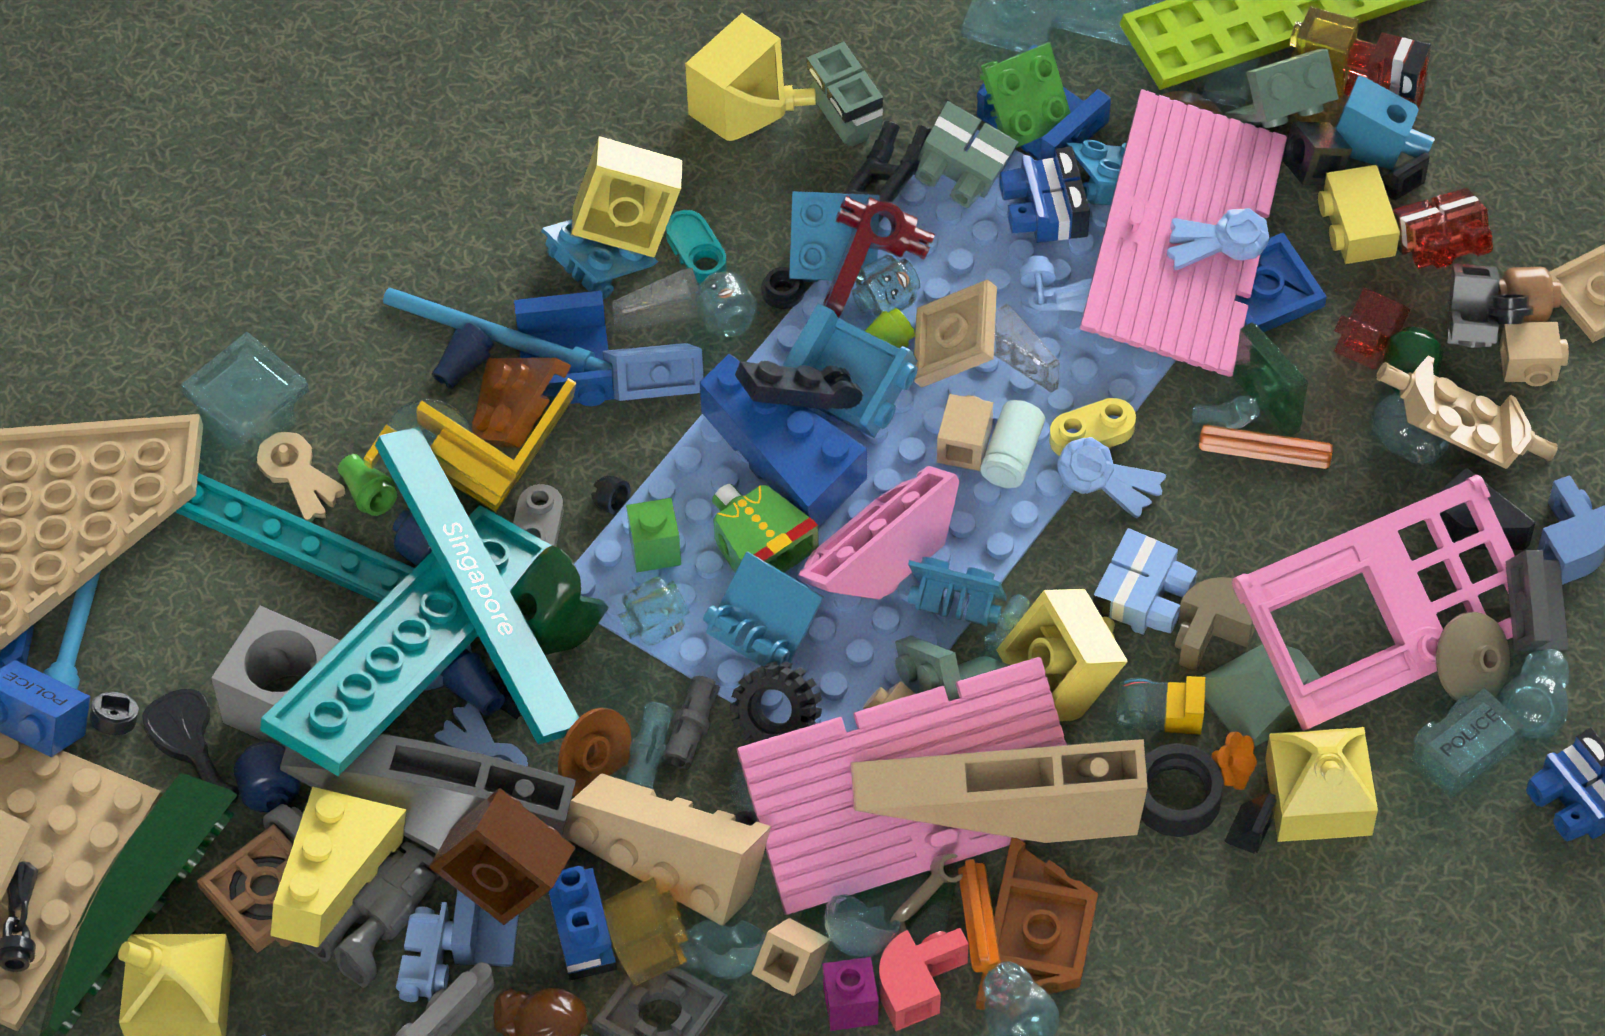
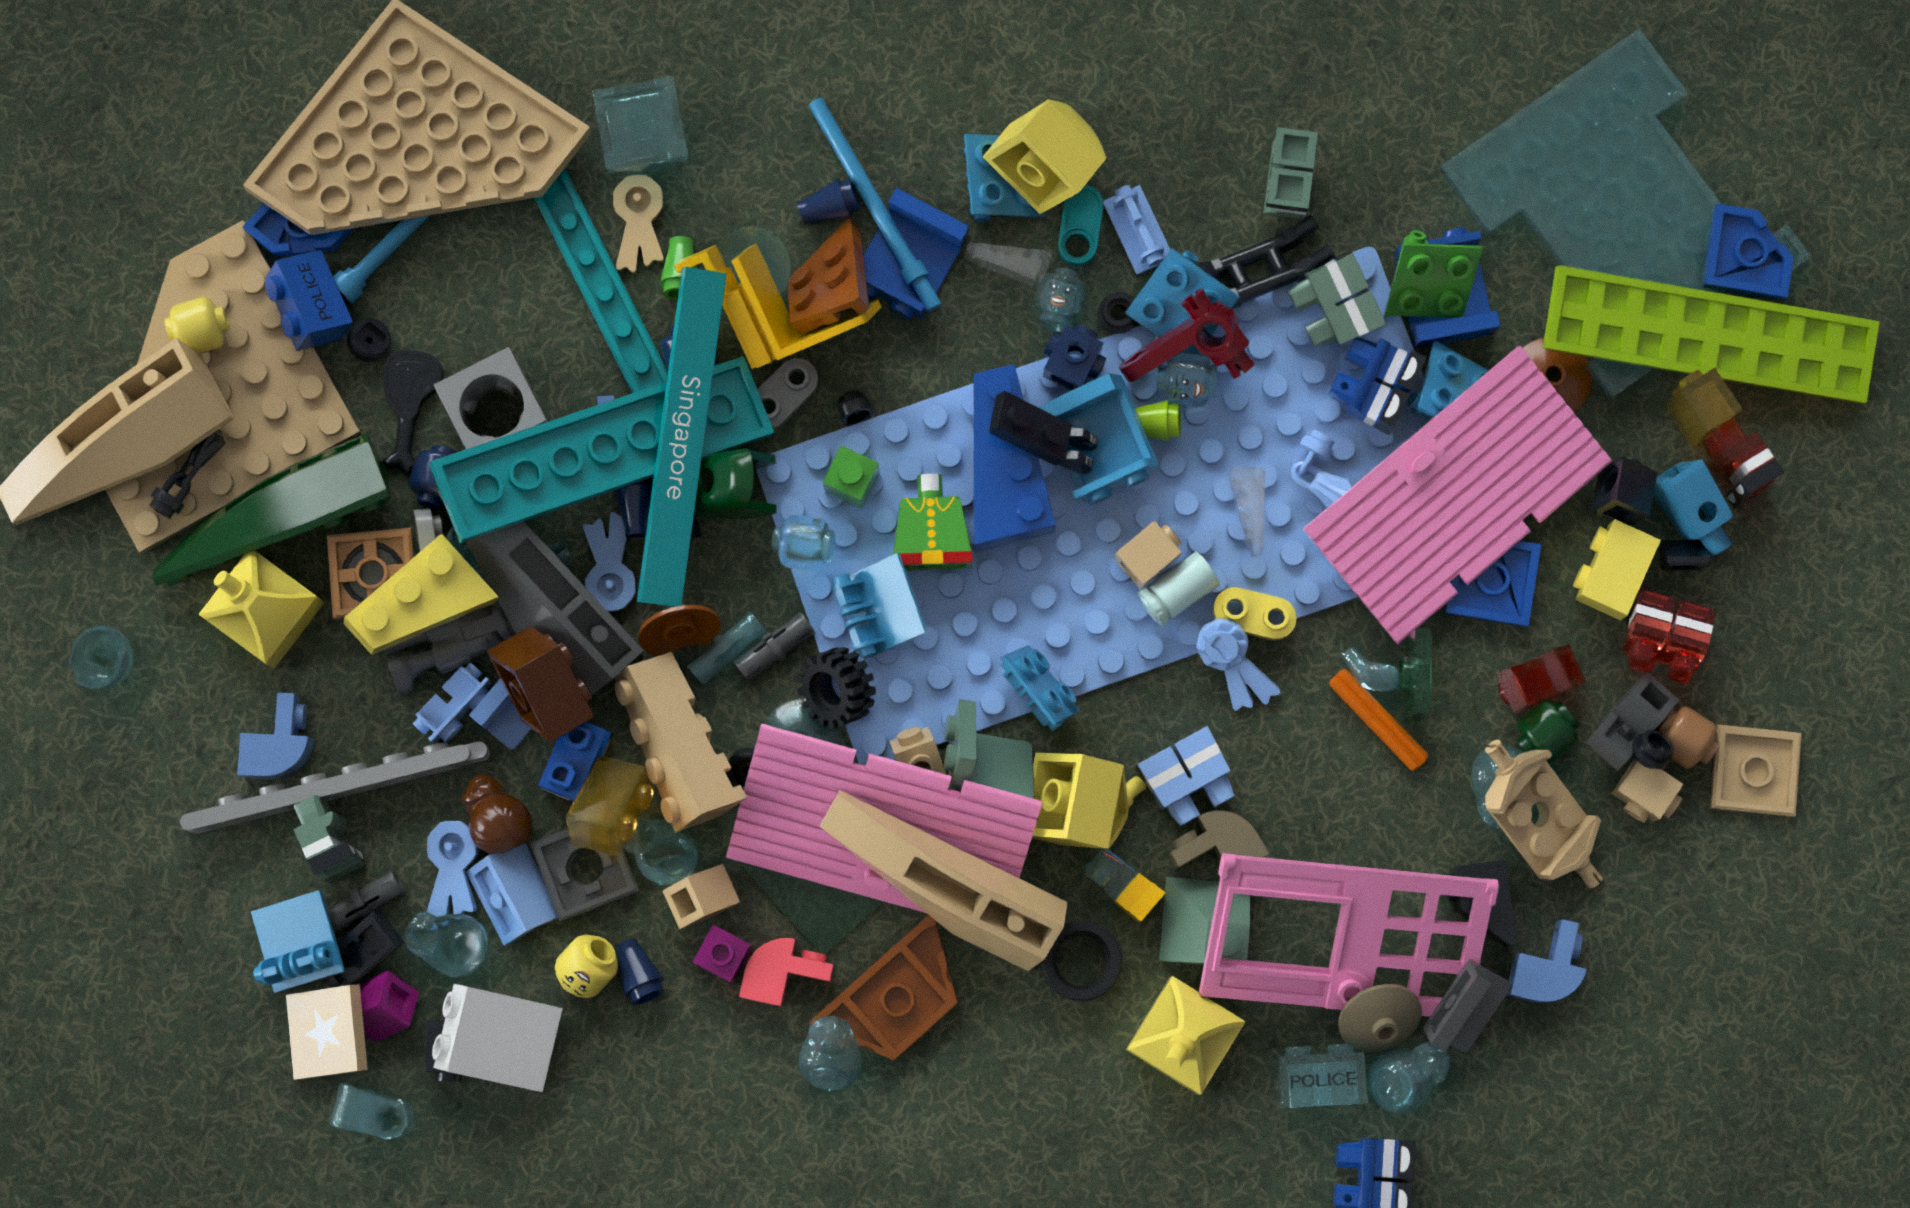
camera: 35 degrees right, 25 degrees up
(655, 371) = (964, 320): medium blue panel -> none
(739, 81) = (1220, 105): light yellow piece -> none
(746, 219) = (1137, 228): none -> light blue hinge
(773, 326) = (1072, 371): none -> dark blue brick
(858, 929) = (765, 908): clear light blue hair -> none
(875, 546) = (1012, 604): bright pink wedge -> none
(925, 891) = (836, 909): dark tan piece -> none
(955, 333) = (1206, 461): tan tile -> none
(979, 917) = (857, 961): orange axle -> none
(1010, 616) = (1066, 734): clear light blue arm -> none
(1236, 760) = (1141, 968): orange plant -> none
(1237, 234) = (1493, 532): light blue piece -> none
(1252, 823) = (1113, 1024): black slope -> none
(1287, 88) = (1637, 428): sand green bracket -> none

